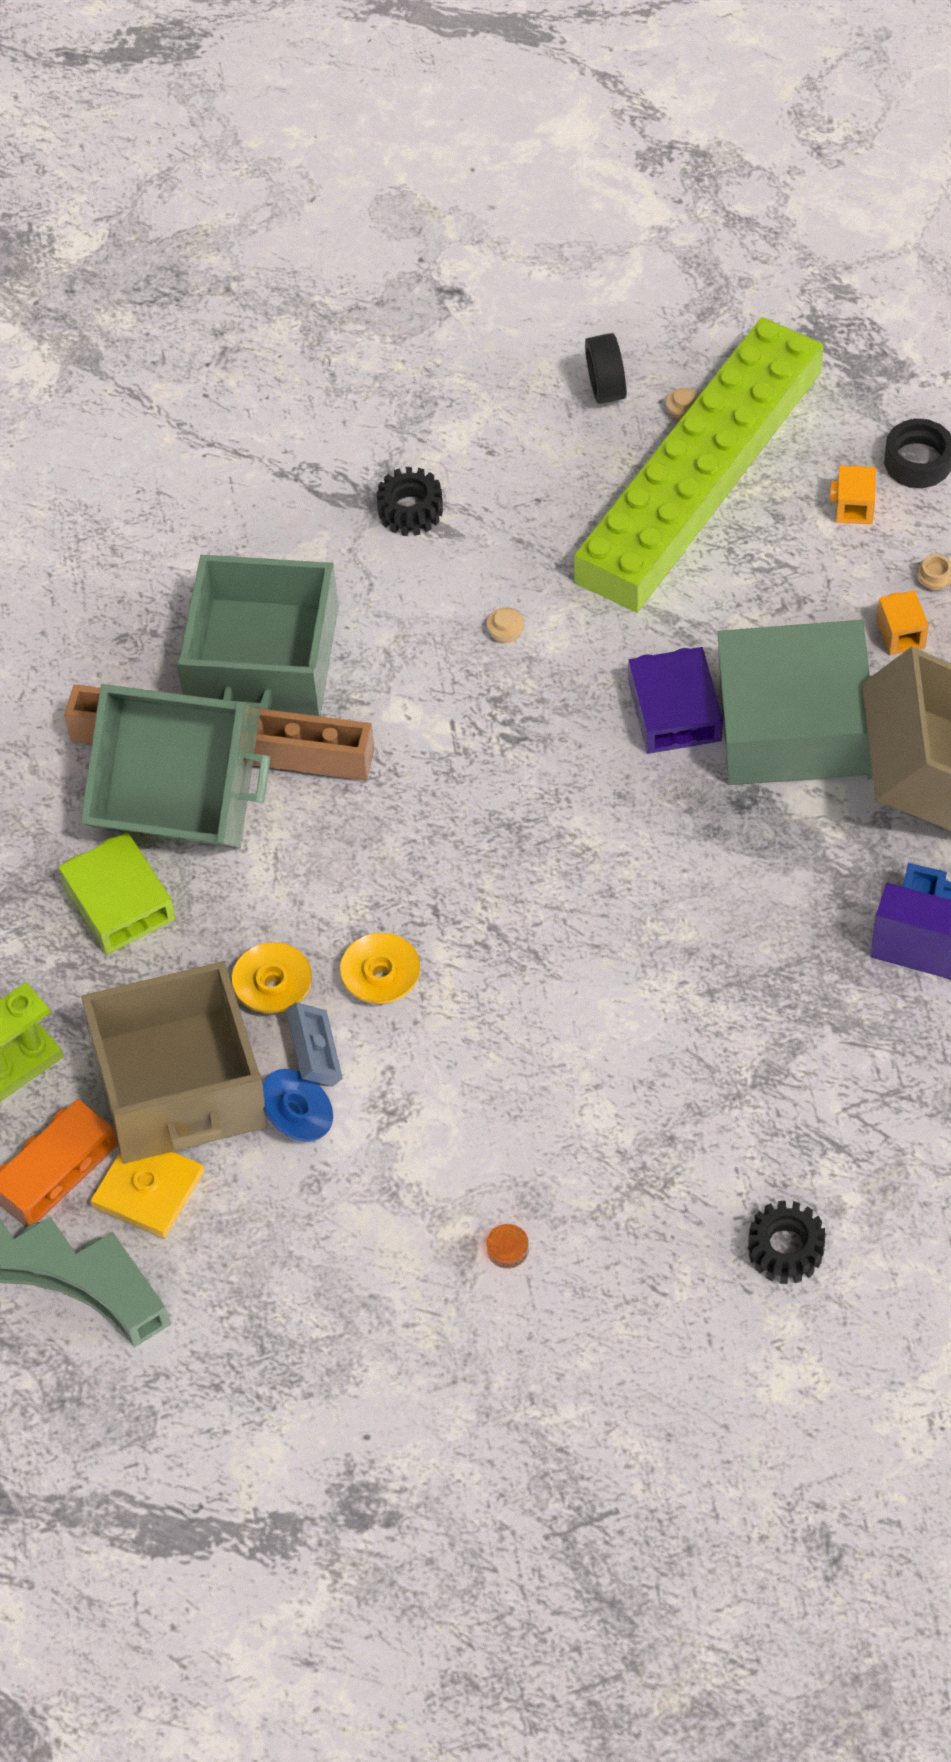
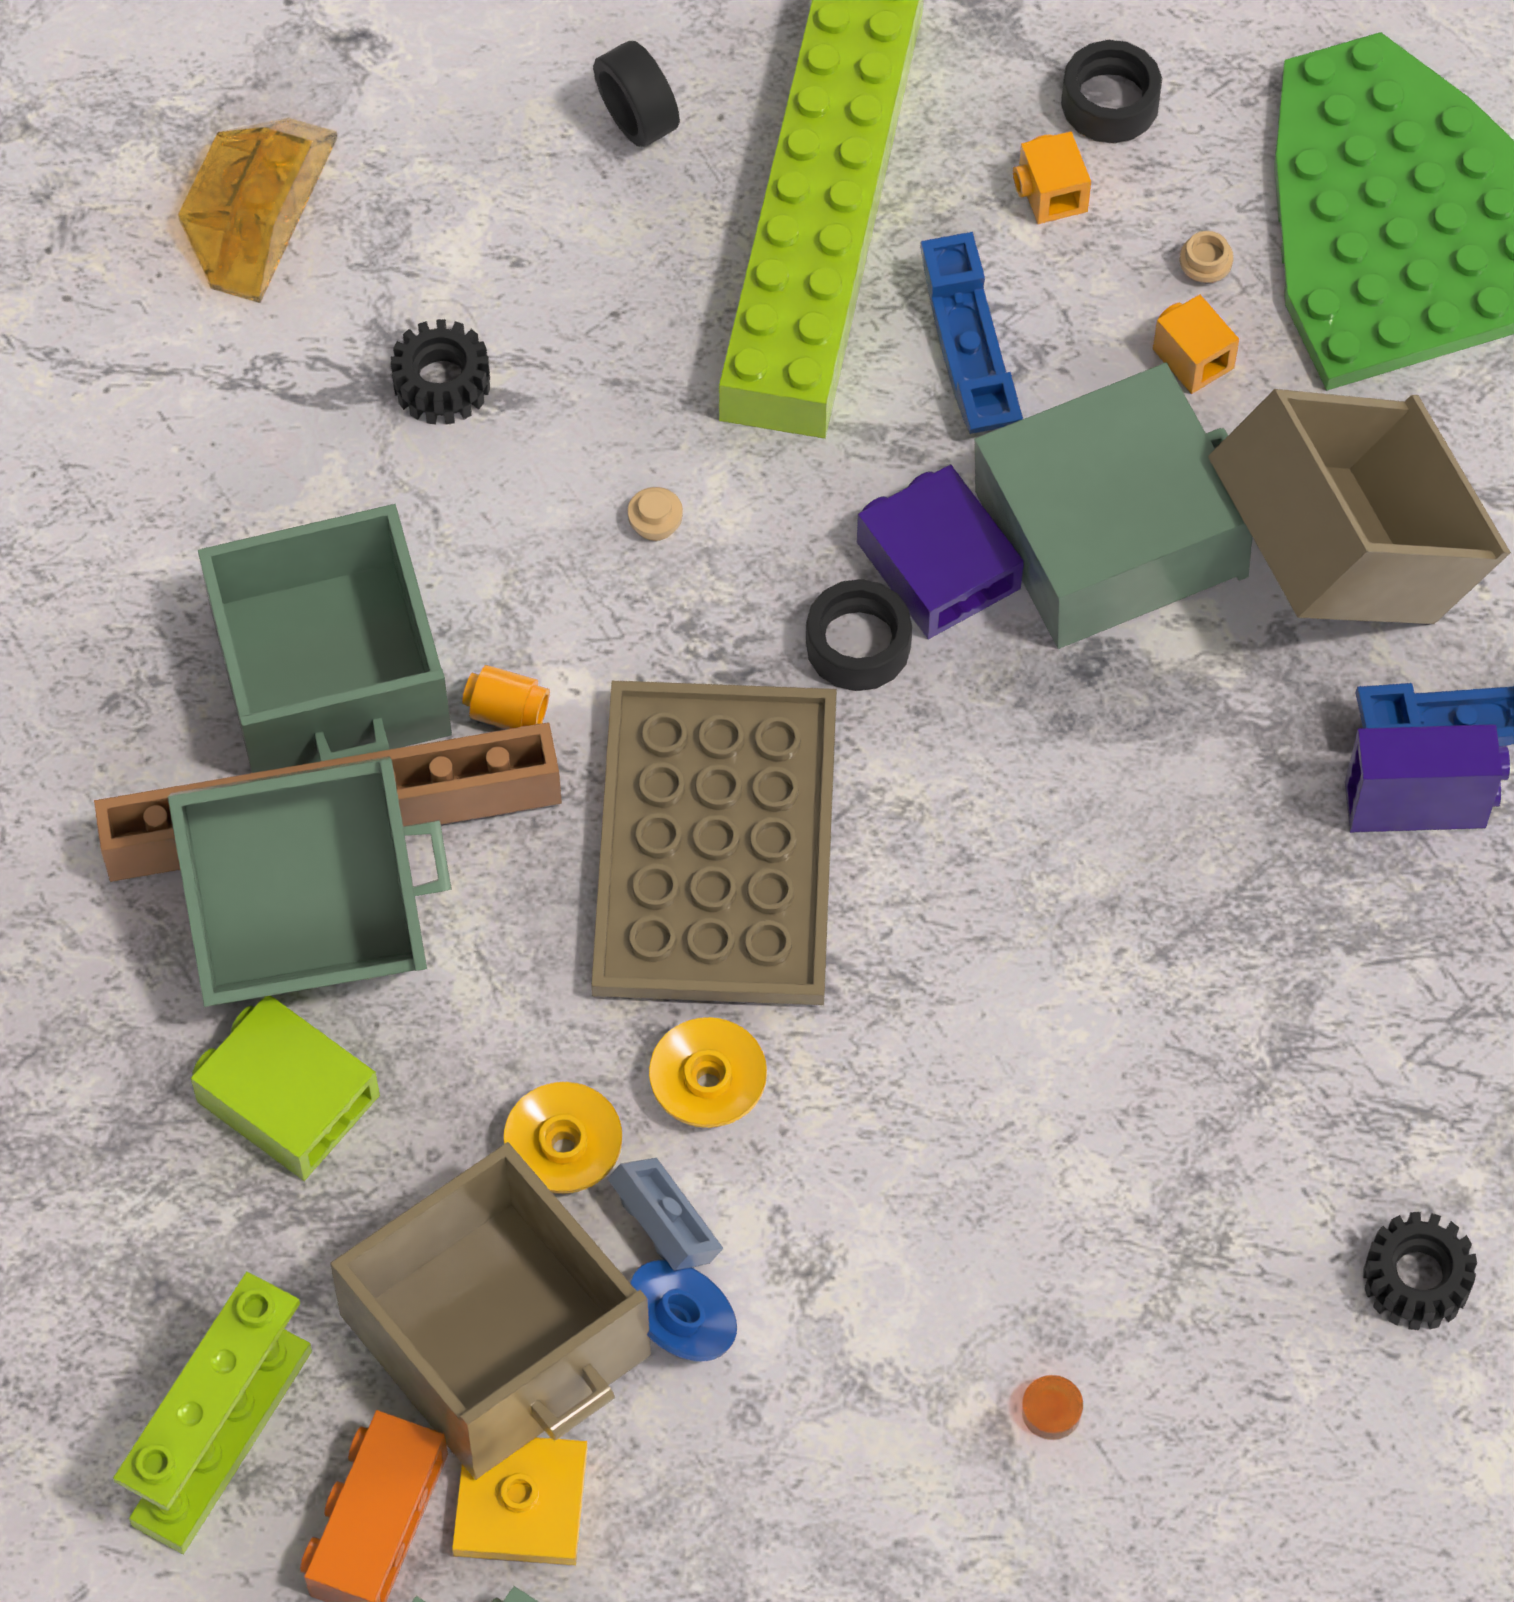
camera: 25 degrees left, 5 degrees up
(342, 368) = (252, 200): none -> clear yellow wedge
(358, 704) = (505, 698): none -> light orange brick
(451, 833) = (715, 843): none -> dark tan plate
(600, 711) = (867, 598): none -> black tyre
(680, 401) = (759, 112): tan plate -> none
(756, 568) = (968, 333): none -> blue slope

